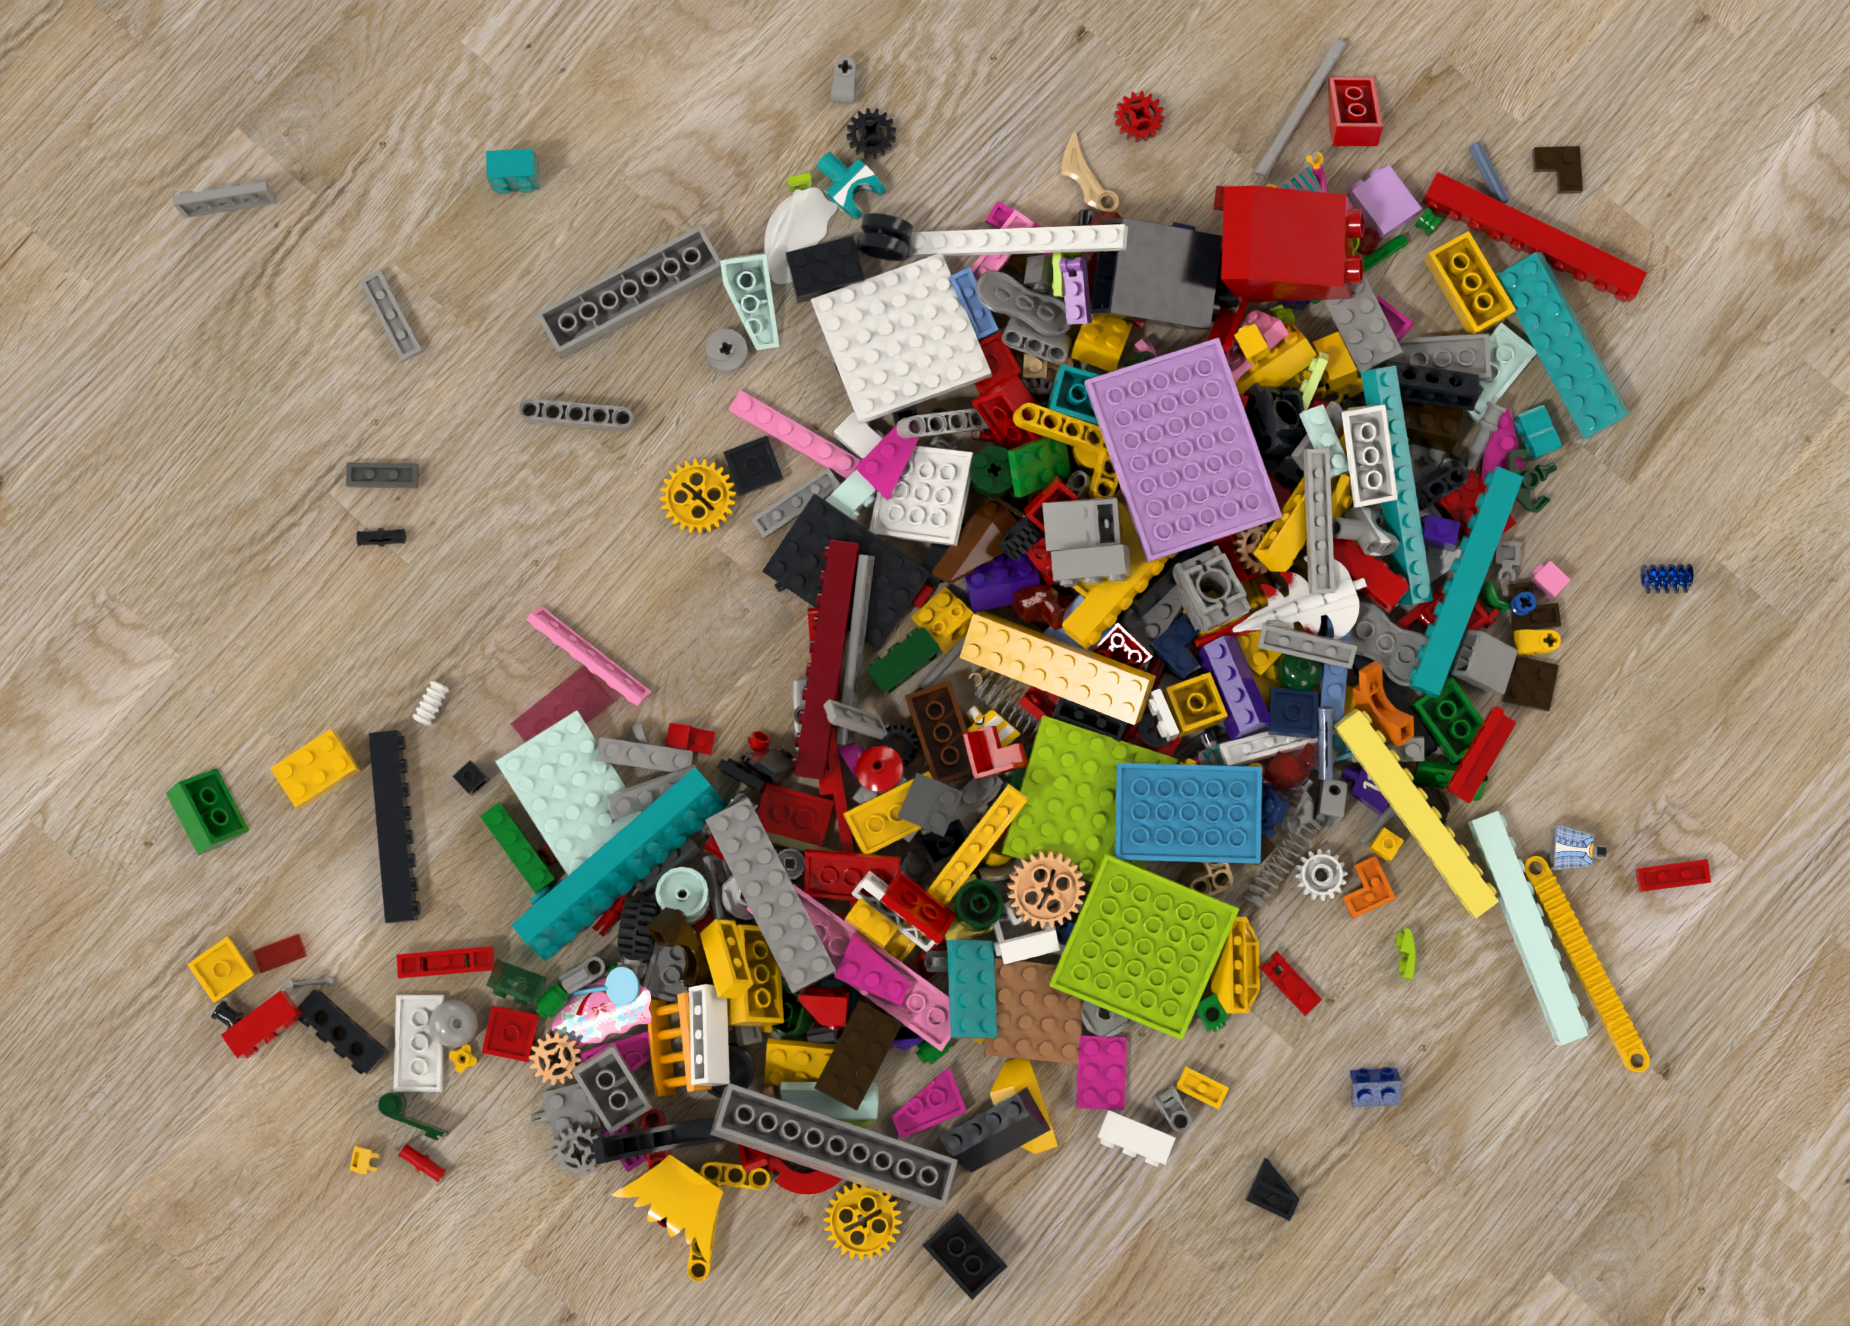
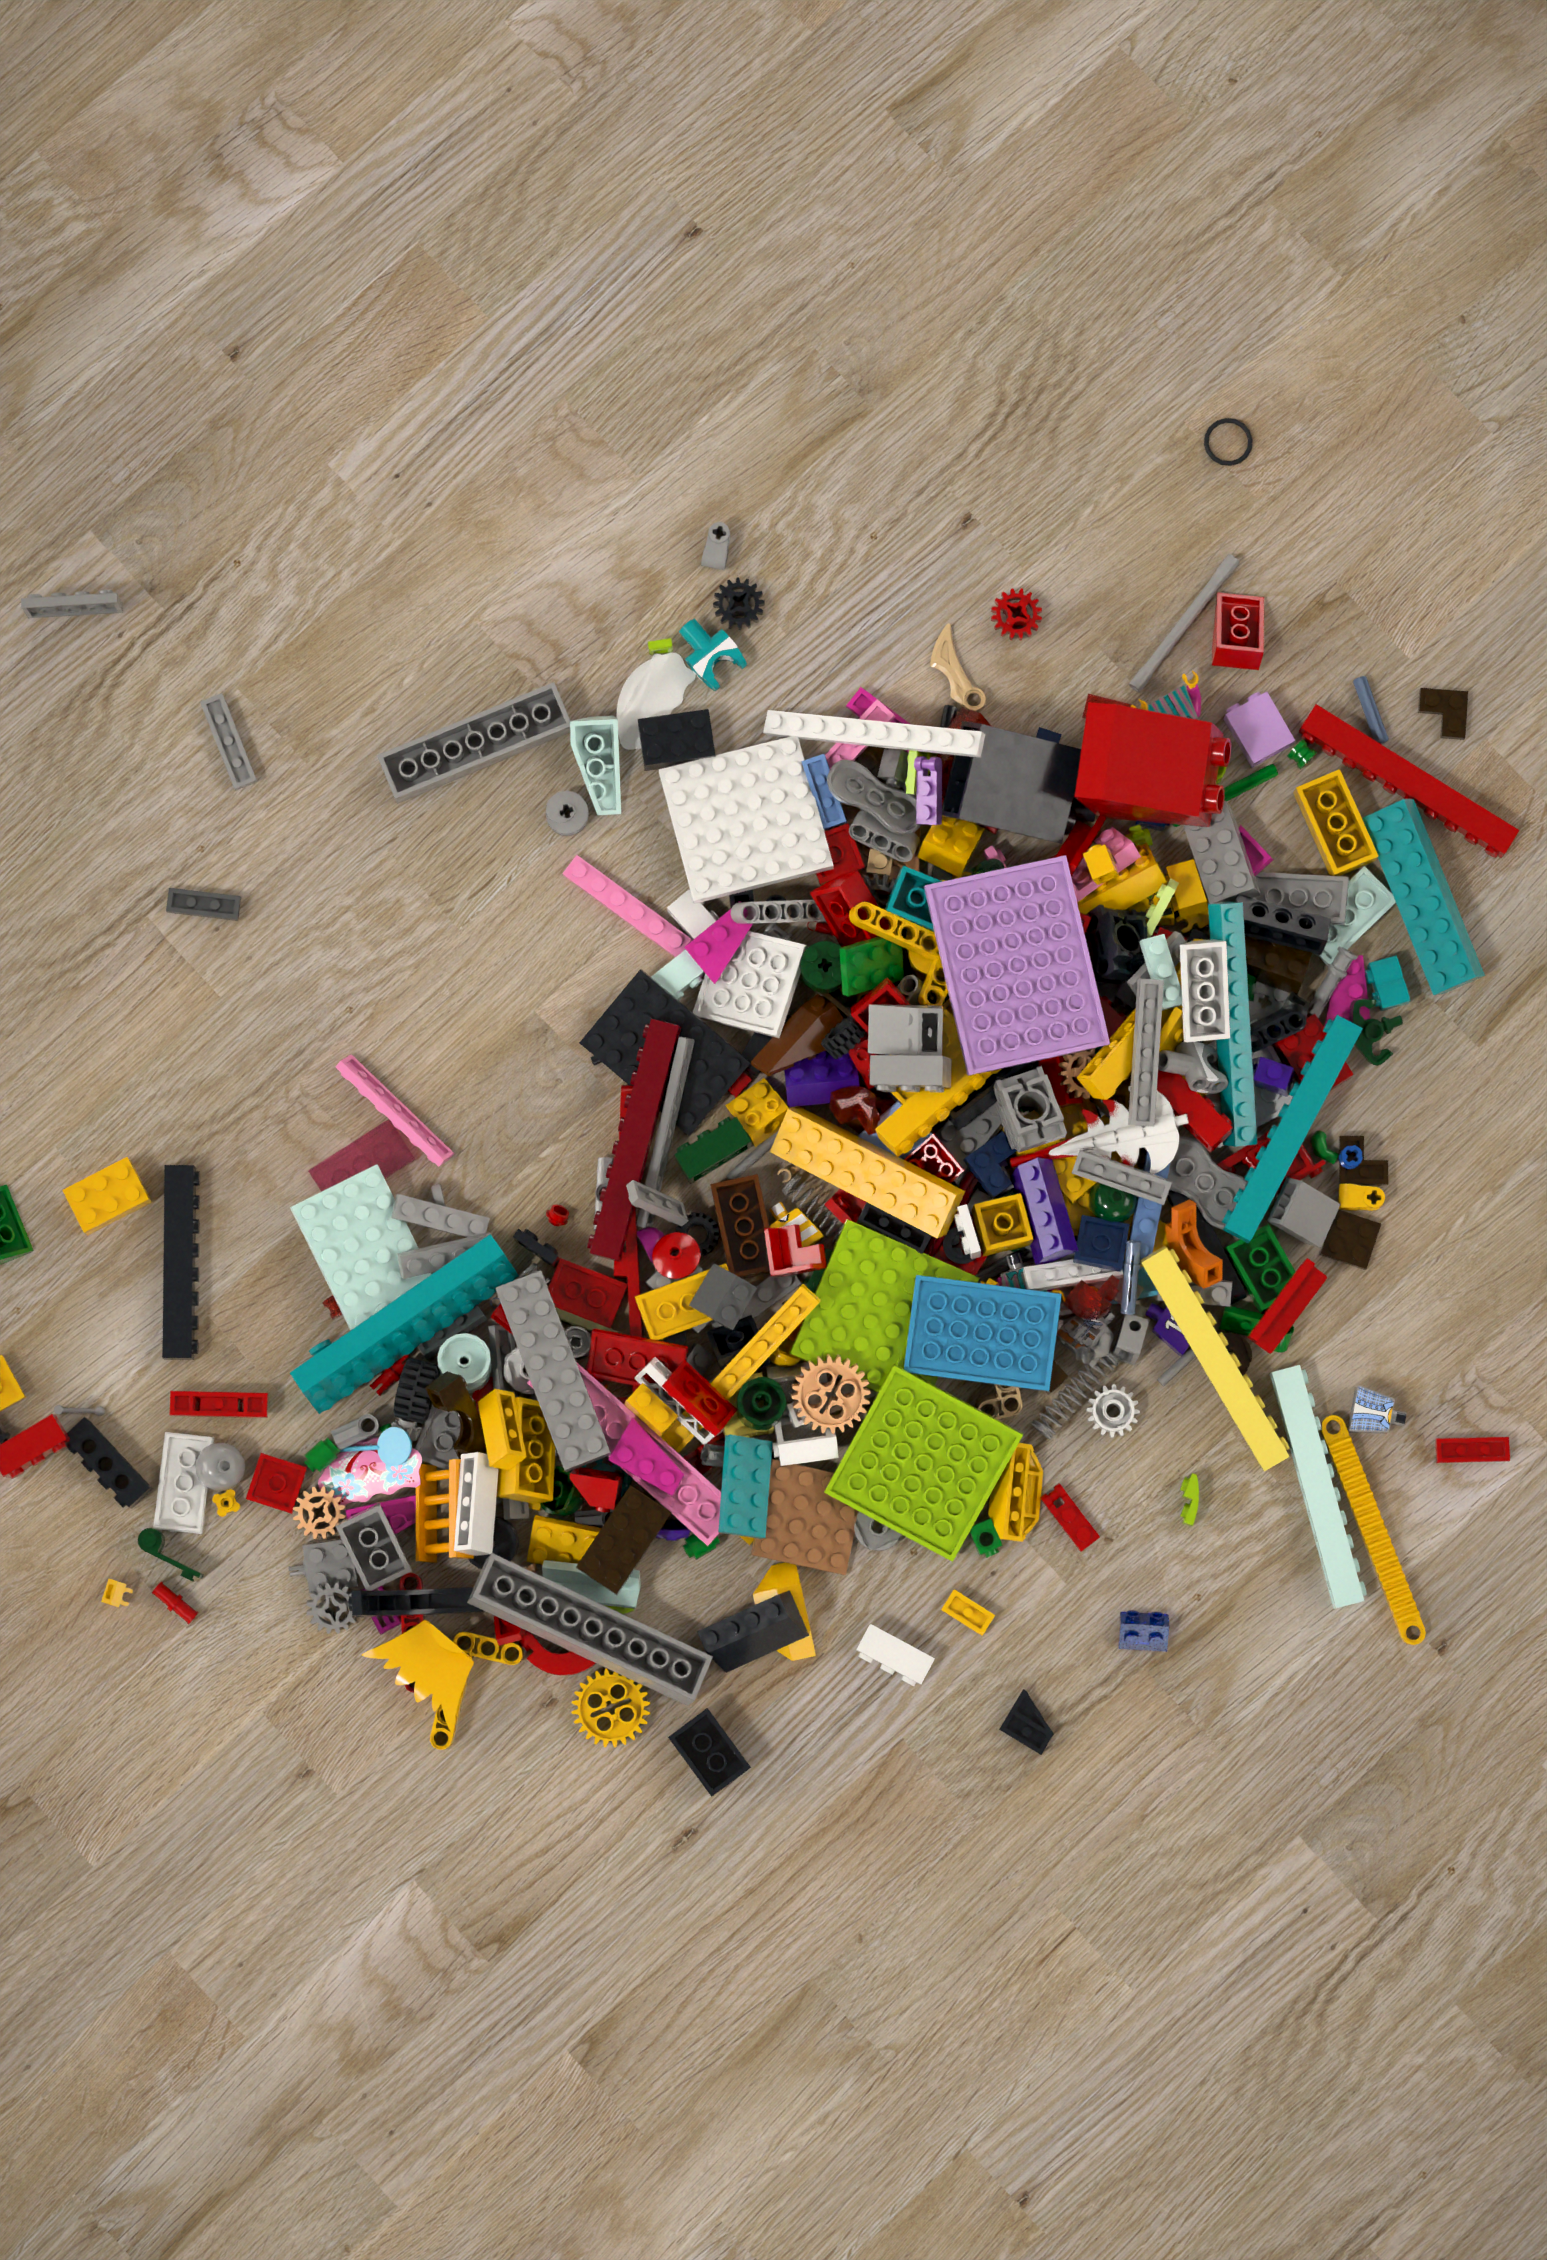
camera: 10 degrees right, 0 degrees up
(280, 953) = (52, 1378): clear red tile -> none
(381, 537) = (196, 967): black pin -> none
(431, 701) = (229, 1141): white piece -> none
(471, 778) = (263, 1221): black brick -> none
(512, 170) = (368, 606): teal brick -> none
(518, 847) = (303, 1296): green brick -> none
(528, 987) = (278, 1422): clear green brick -> none
(566, 410) = (416, 871): light grey beam -> none
(684, 511) = (537, 946): yellow gear -> none
(690, 738) = (488, 1205): red slope -> none
(753, 466) = (581, 934): black plate -> none
(769, 763) = (566, 1239): black wedge -> none
(792, 504) = (617, 978): light grey plate -> none
(884, 237) = (740, 713): black wheel -> none
(931, 1106) = (692, 1601): dark pink wing -> none
(1063, 932) = (846, 1438): blue wheel -> none
(1101, 1072) = (868, 1586): dark pink plate -> none
(1172, 1108) = (935, 1629): light grey piece -> none
(1272, 809) = (1067, 1338): dark blue plate -> none
(1370, 237) = (1238, 763): clear red wheel -> none
(1375, 889) = (1166, 1433): orange plate -> none
(1385, 844) = (1182, 1387): yellow brick -> none
(1507, 555) = (1342, 1107): light grey plate -> none
(1549, 579) = (1381, 1135): bright pink brick -> none
(1666, 577) = (1502, 1146): clear blue piece -> none

